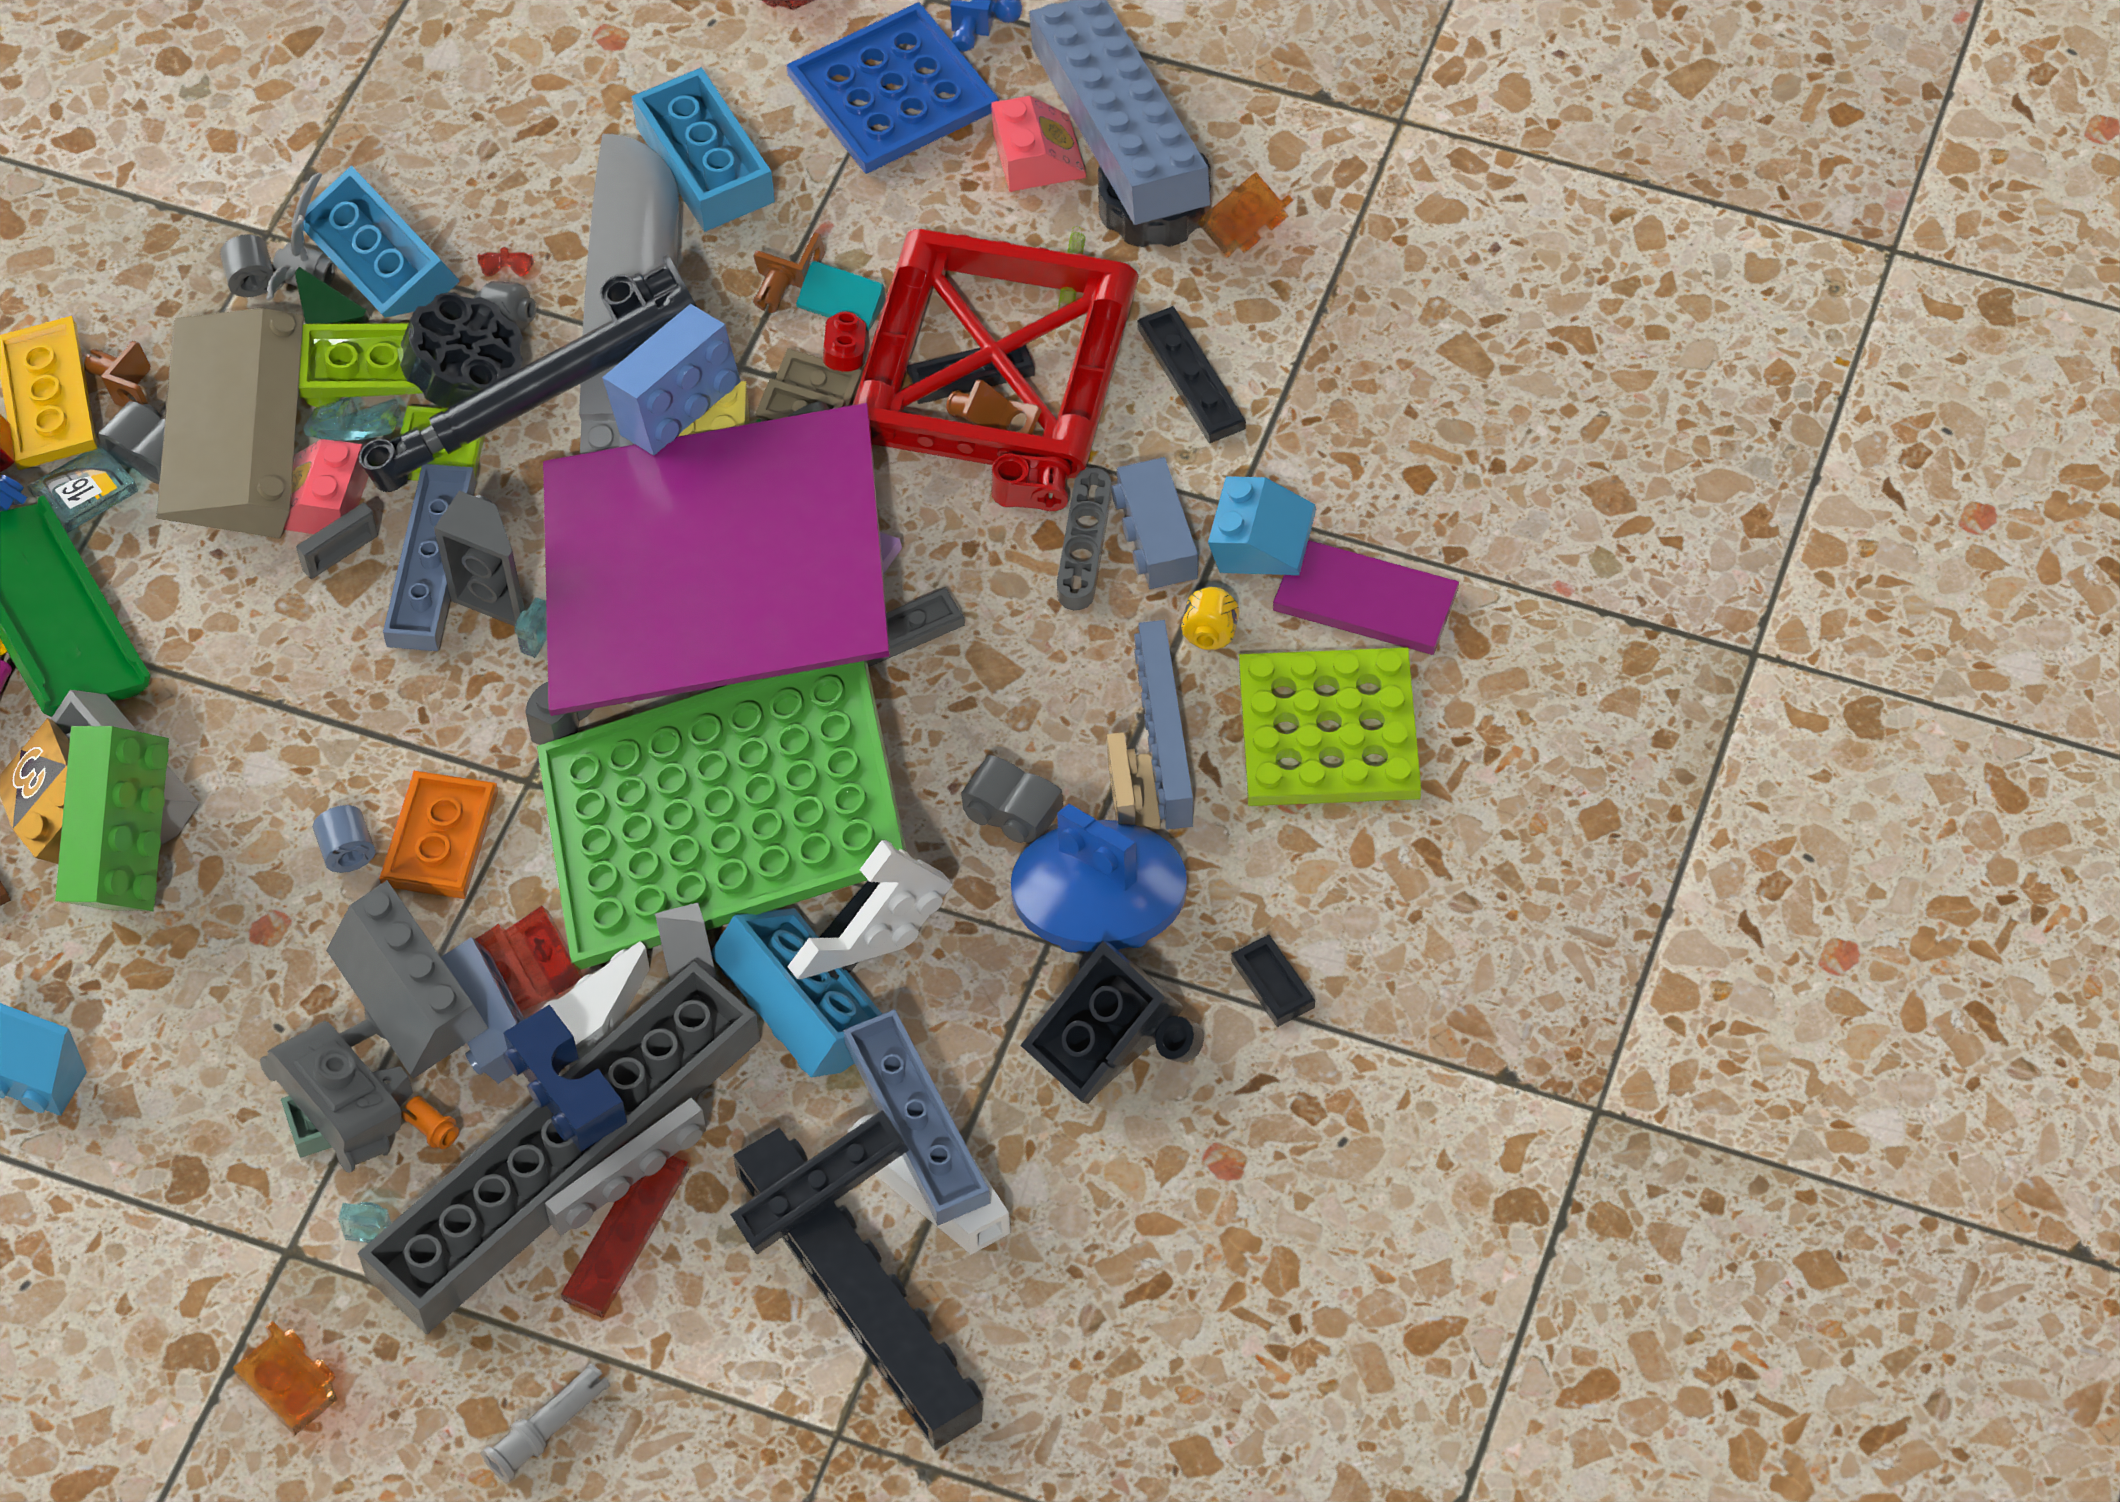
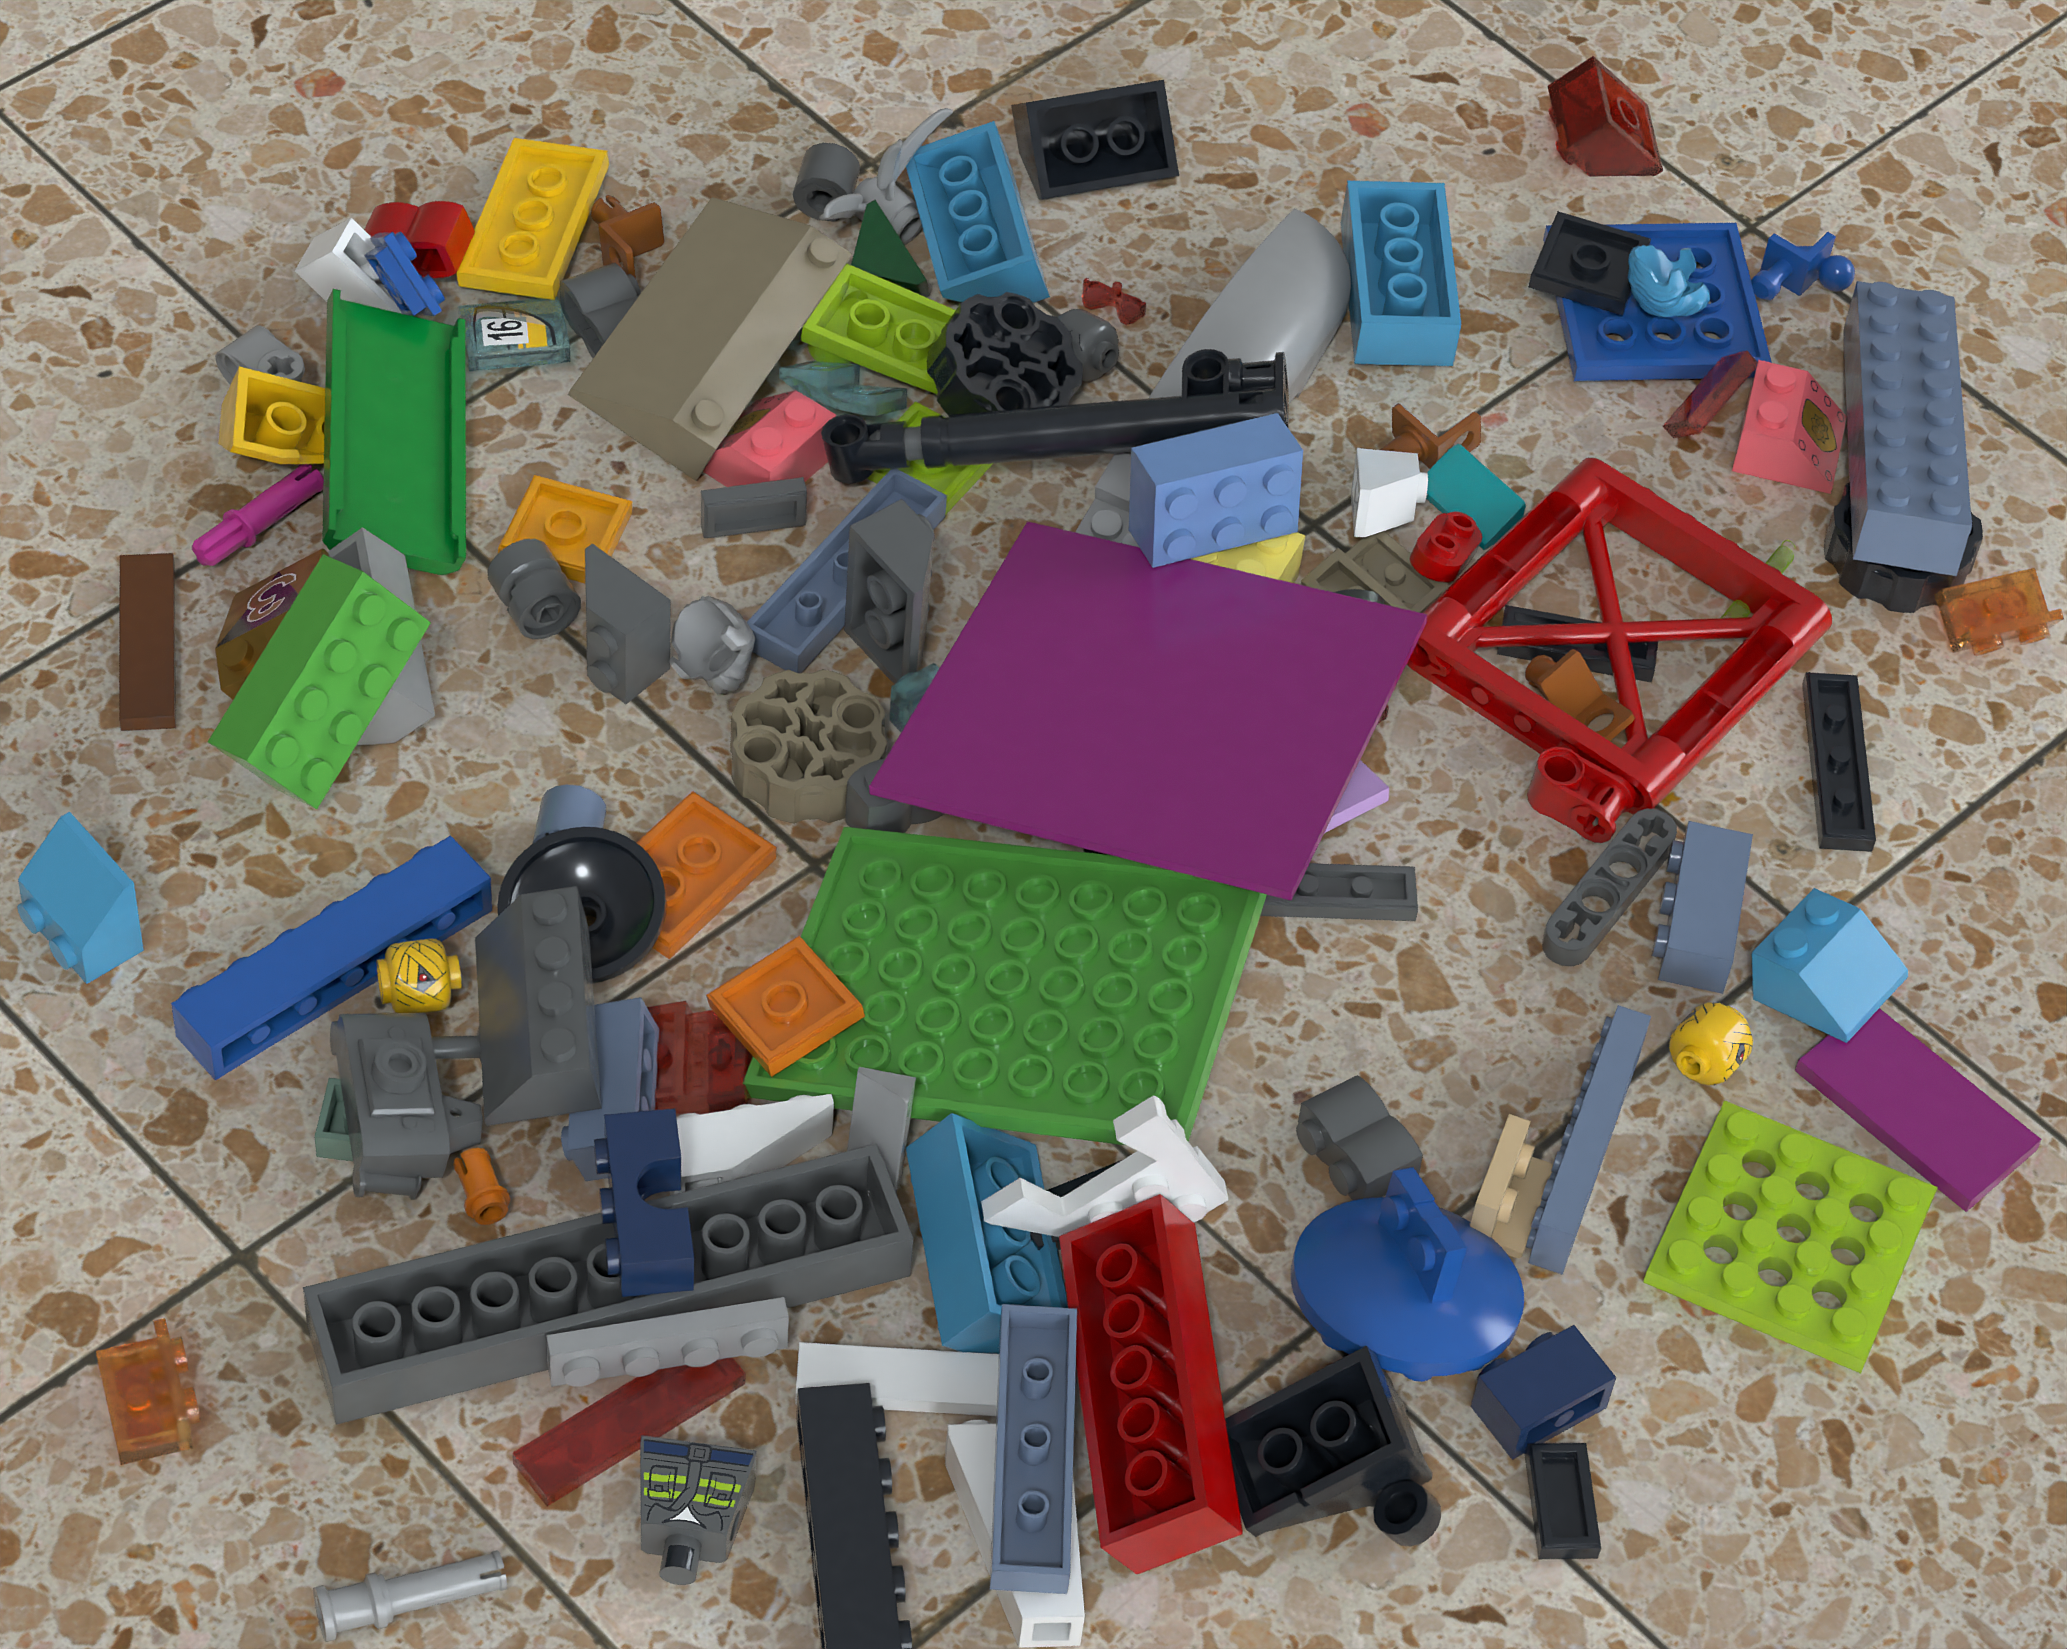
camera: 20 degrees right, 5 degrees down
(208, 620) = (568, 522): none -> light orange tile
(212, 673) = (534, 589): none -> dark grey wheel
(228, 1012) = (328, 957): none -> blue brick
(297, 674) = (623, 628): none -> dark grey slope
(299, 997) = (418, 976): none -> yellow head
(363, 1221) = (336, 1255): clear light blue plate -> none
(368, 656) = (712, 644): none -> light grey hair
(405, 859) = (615, 886): none -> black dish
(426, 142) = (1096, 139): none -> black slope
(476, 699) = (802, 760): none -> dark tan connector
(571, 894) = (785, 1006): none -> orange tile
(700, 1267) = (692, 1502): none -> dark grey torso
(780, 320) = (1385, 490): none -> white slope
(796, 1111) = (905, 1377): none -> white tile
(819, 1182) = (876, 1467): black tile -> none
(833, 80) = (1586, 263): none -> black tile
(895, 75) = (1663, 284): none -> dark azure hair
(967, 1036) = (1149, 1386): none -> red brick
(969, 142) = (1710, 394): none -> clear red tile
(1222, 913) = (1542, 1390): none -> dark blue brick

